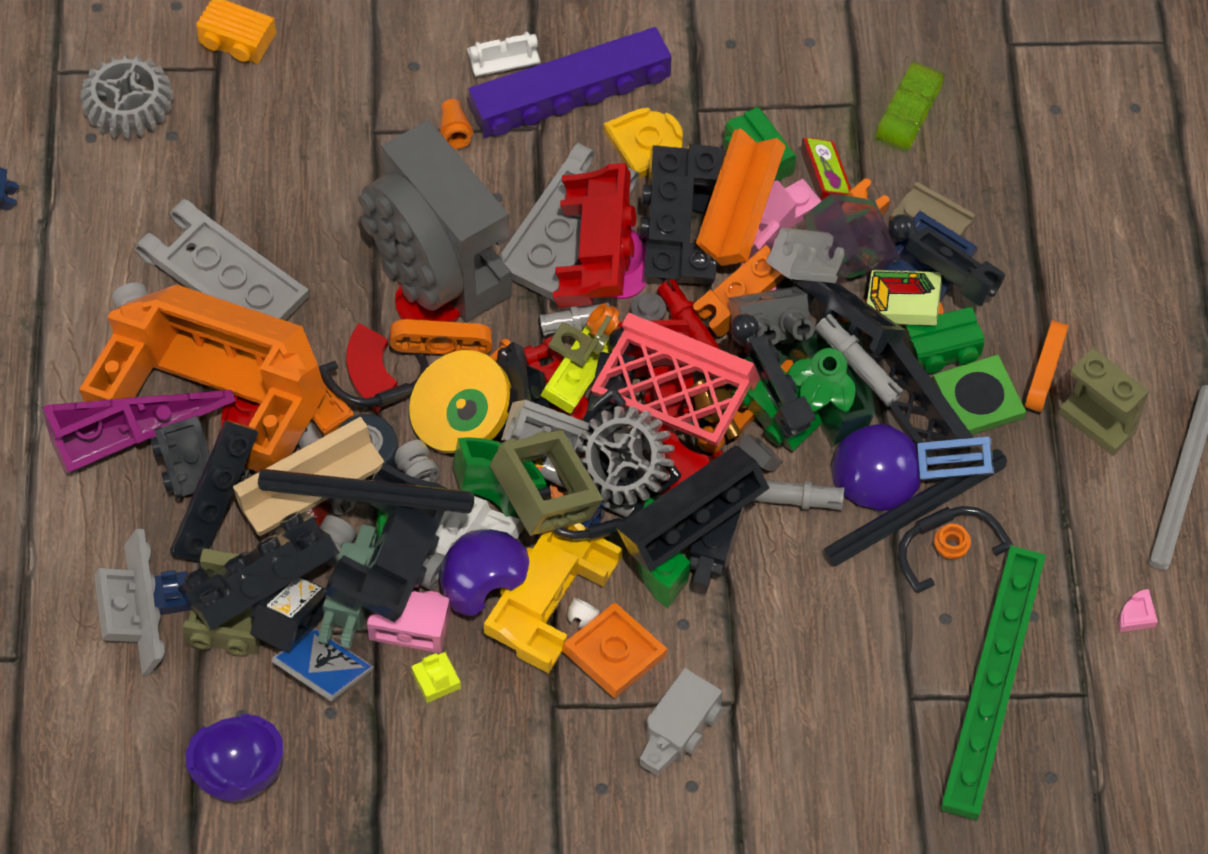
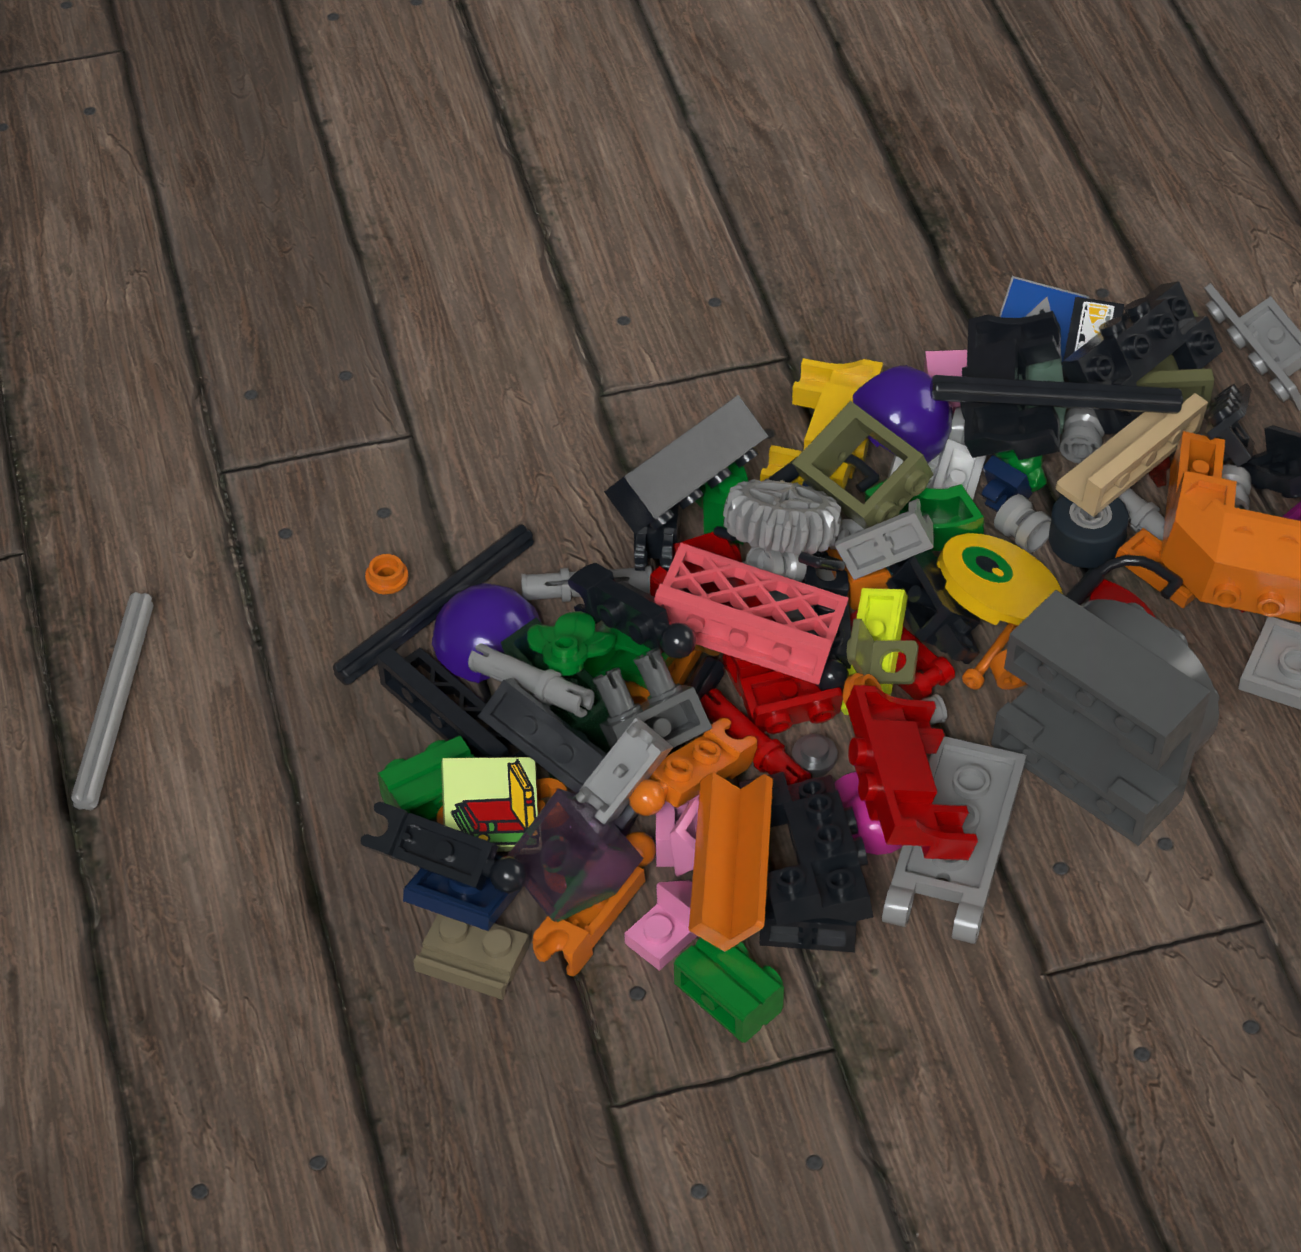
camera: 170 degrees right, 10 degrees down
(166, 593) = (1232, 367): dark blue tile -> none
(235, 757) = (1084, 224): dark purple cylinder -> none
(436, 676) = (912, 345): neon yellow tile -> none
(455, 125) = (1154, 932): orange cone -> none
(504, 55) = (1133, 1055): white hinge -> none
(570, 82) = (1018, 1024): dark purple brick -> none
(582, 611) = (777, 426): white hinge -> none
(614, 650) = (759, 389): orange plate -> none
(638, 132) = (890, 980): yellow tile -> none
(680, 720) = (648, 351): light grey hinge -> none
(824, 167) = (630, 984): slope -> none
(910, 106) = (528, 1098): clear neon green beam -> none
(938, 519) = (404, 599): black piece -> none
(981, 394) = (373, 736): bright green tile -> none
(986, 455) = (394, 630): medium blue tile -> none
(993, 683) = (319, 455): green plate -> none
(1046, 366) = (294, 782): orange beam -> none
(1104, 402) = (212, 716): olive panel -> none
(1138, 613) = (165, 551): bright pink tile -> none

